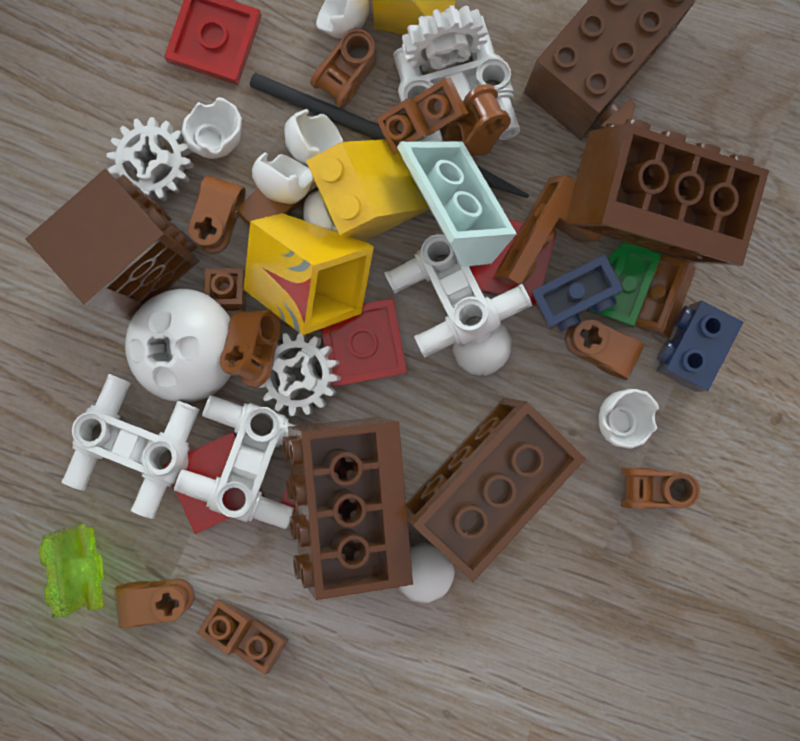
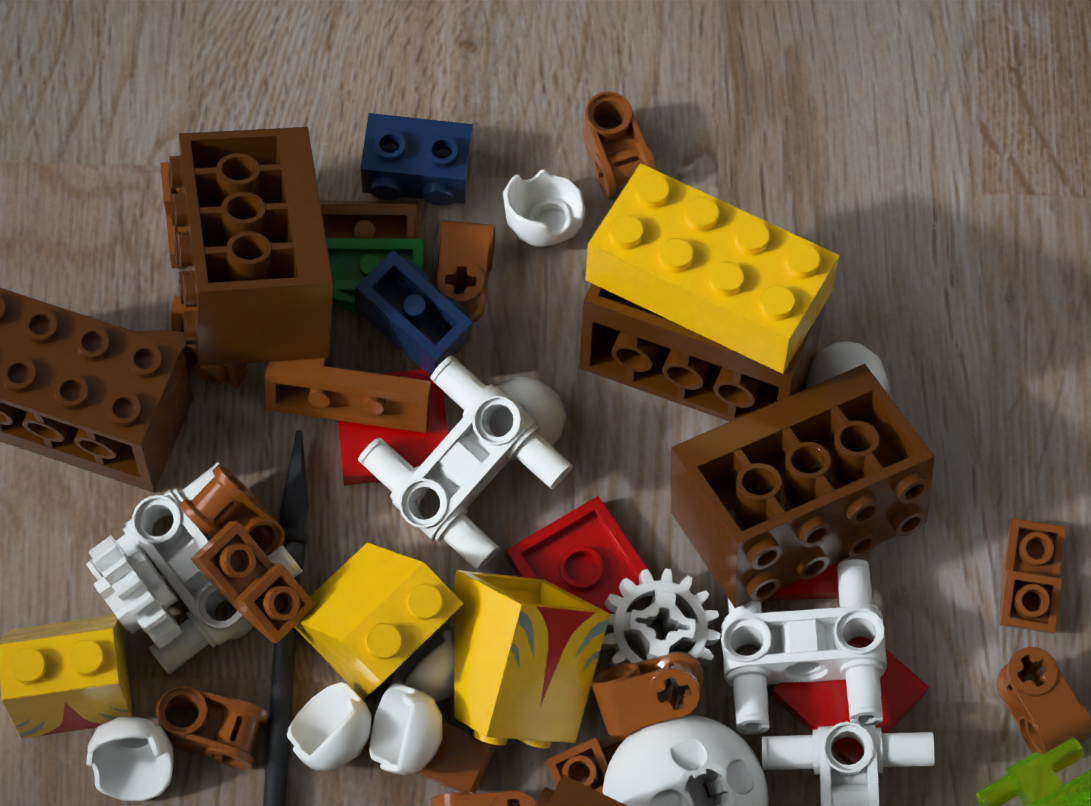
camera: 110 degrees left, 20 degrees down
(459, 200) = (352, 488): light aqua slope -> none
(513, 499) = (711, 267): none -> yellow brick

